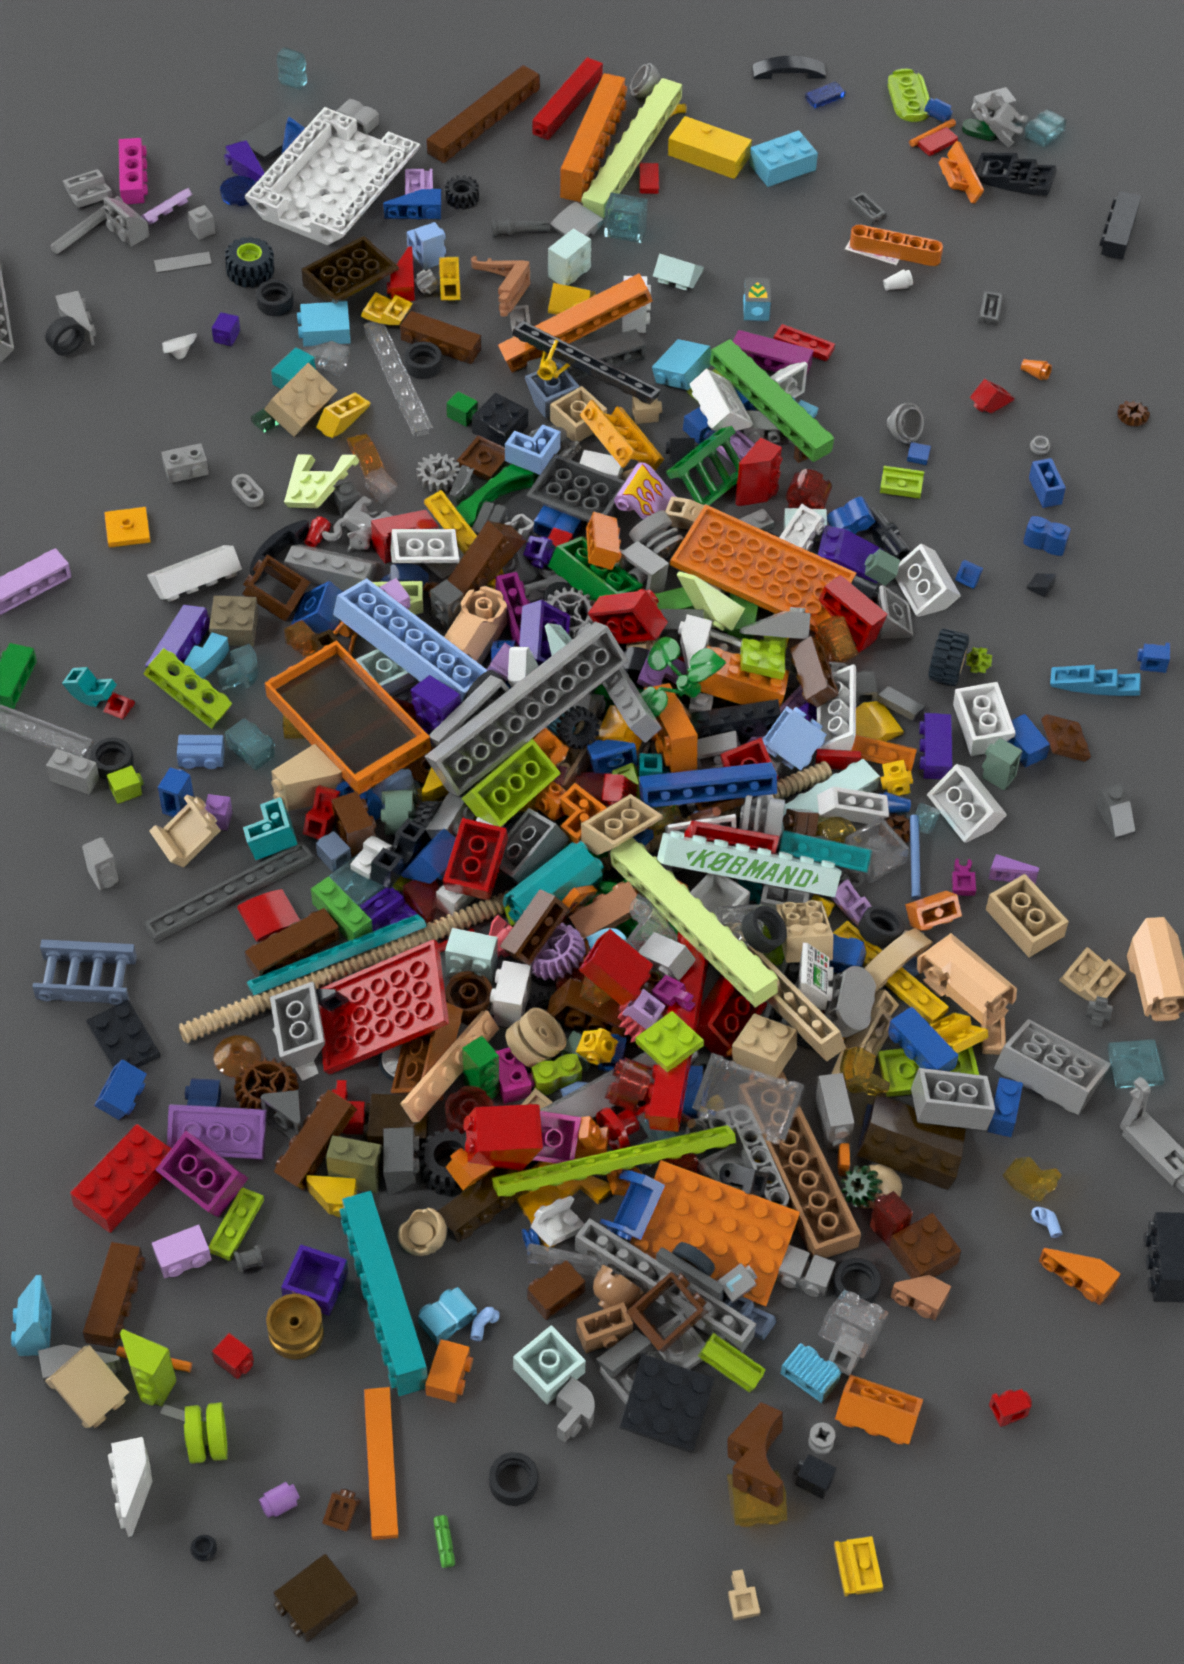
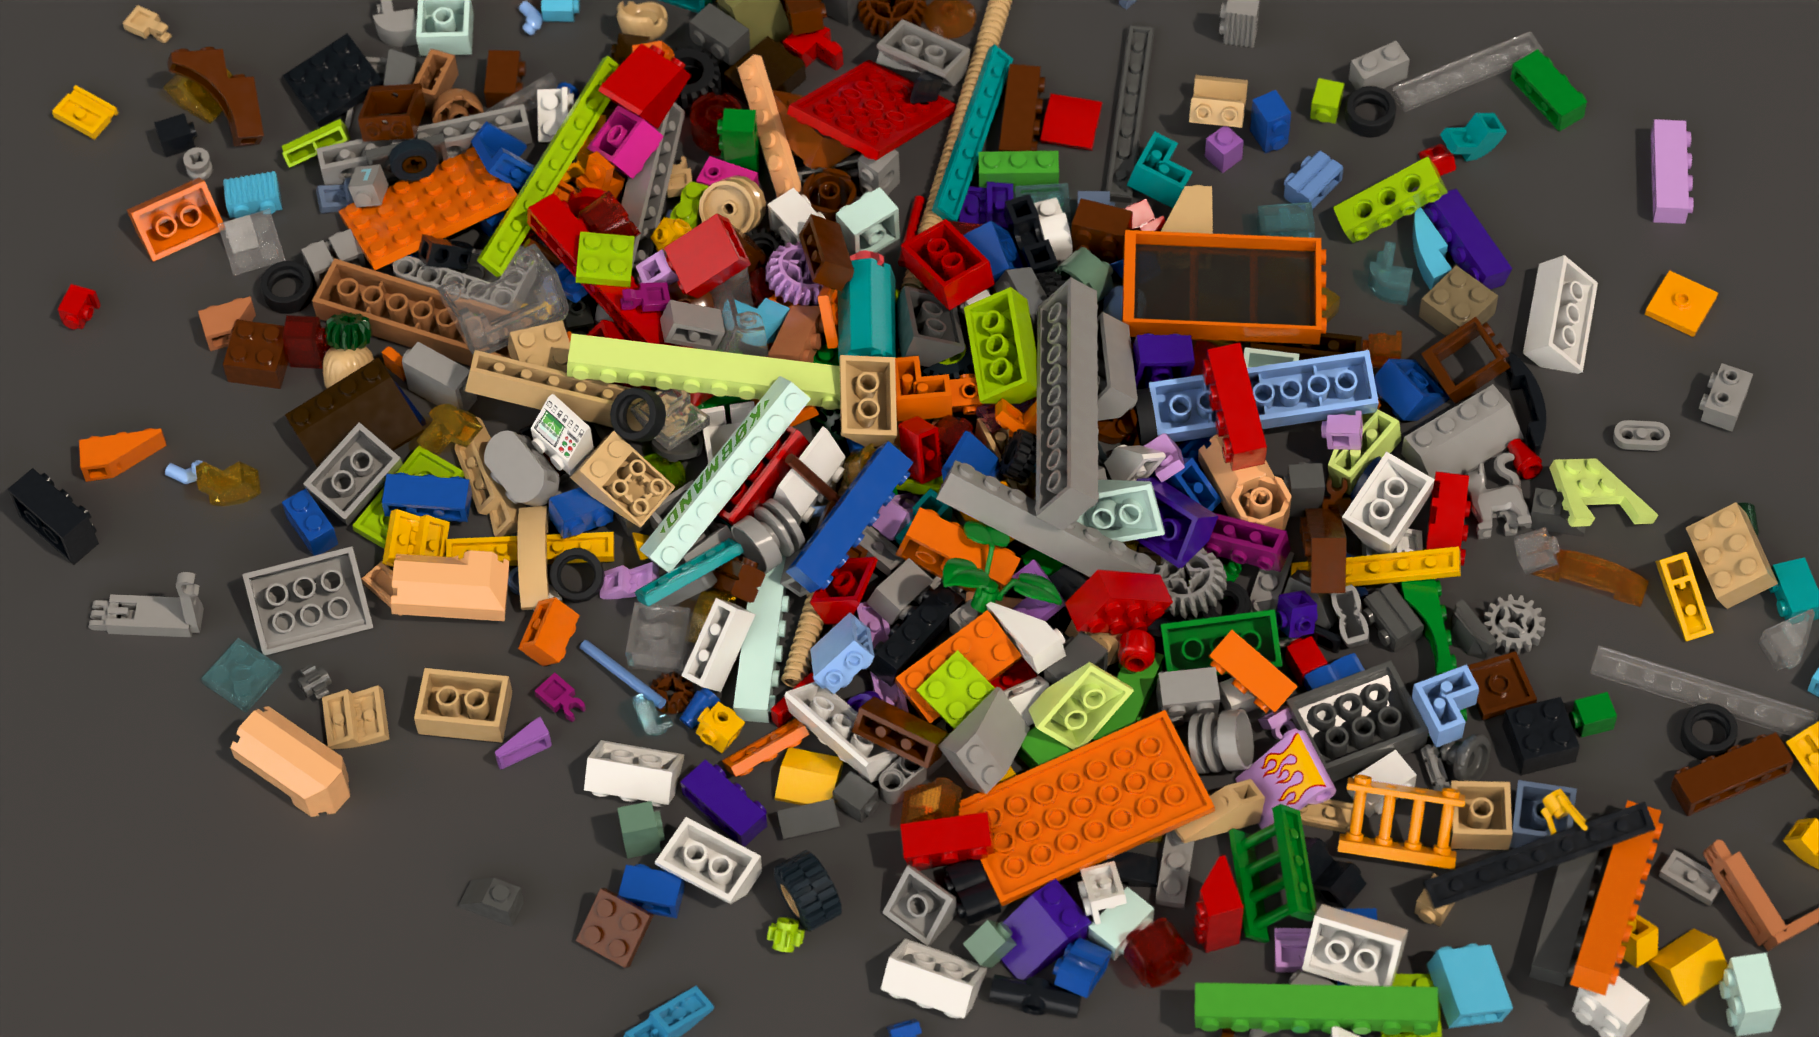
camera: 135 degrees right, 5 degrees up
(446, 626) = (1235, 406): none -> red brick

